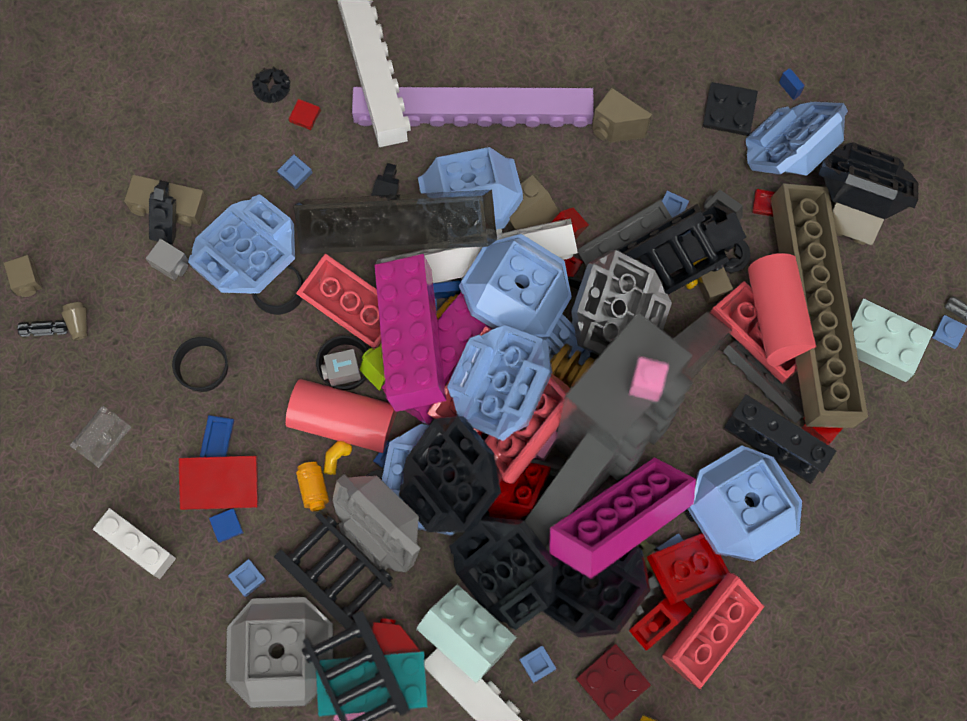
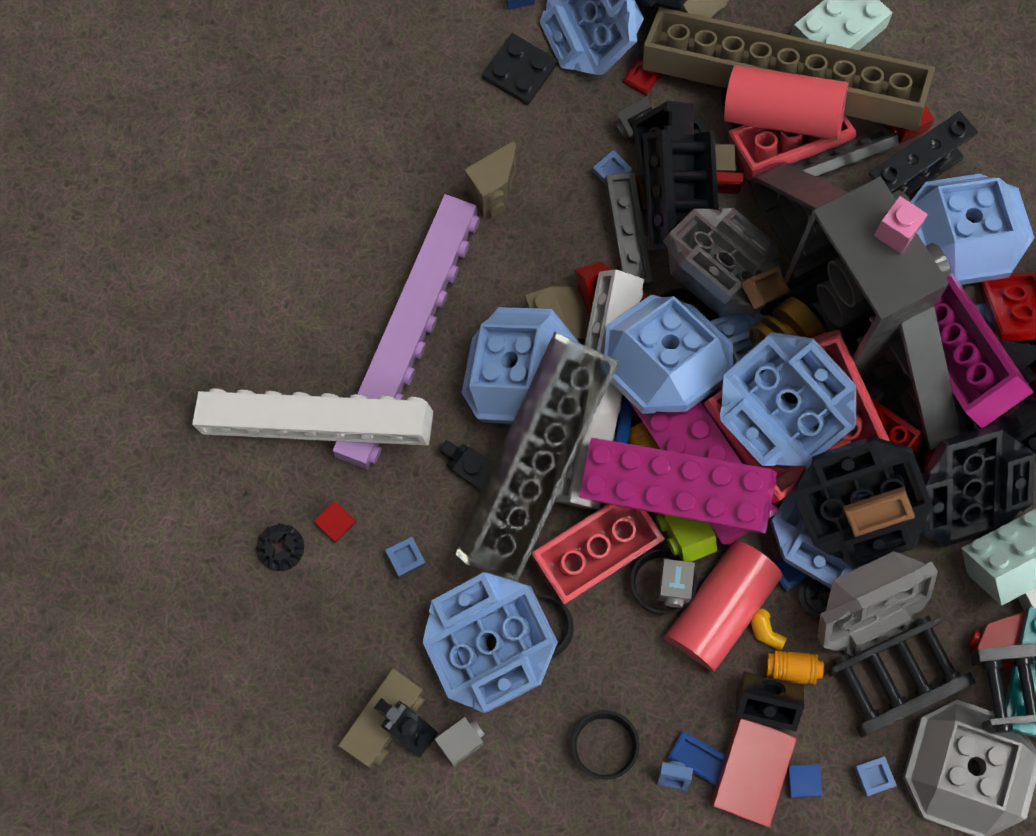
camera: 70 degrees left, 0 degrees up
(195, 423) = (675, 775): none -> medium blue plate
(275, 473) = (770, 701): none -> black brick
(444, 491) = (879, 511): none -> medium nougat tile
(598, 337) = (765, 287): none -> medium nougat tile
(700, 298) = (729, 182): none -> red tile

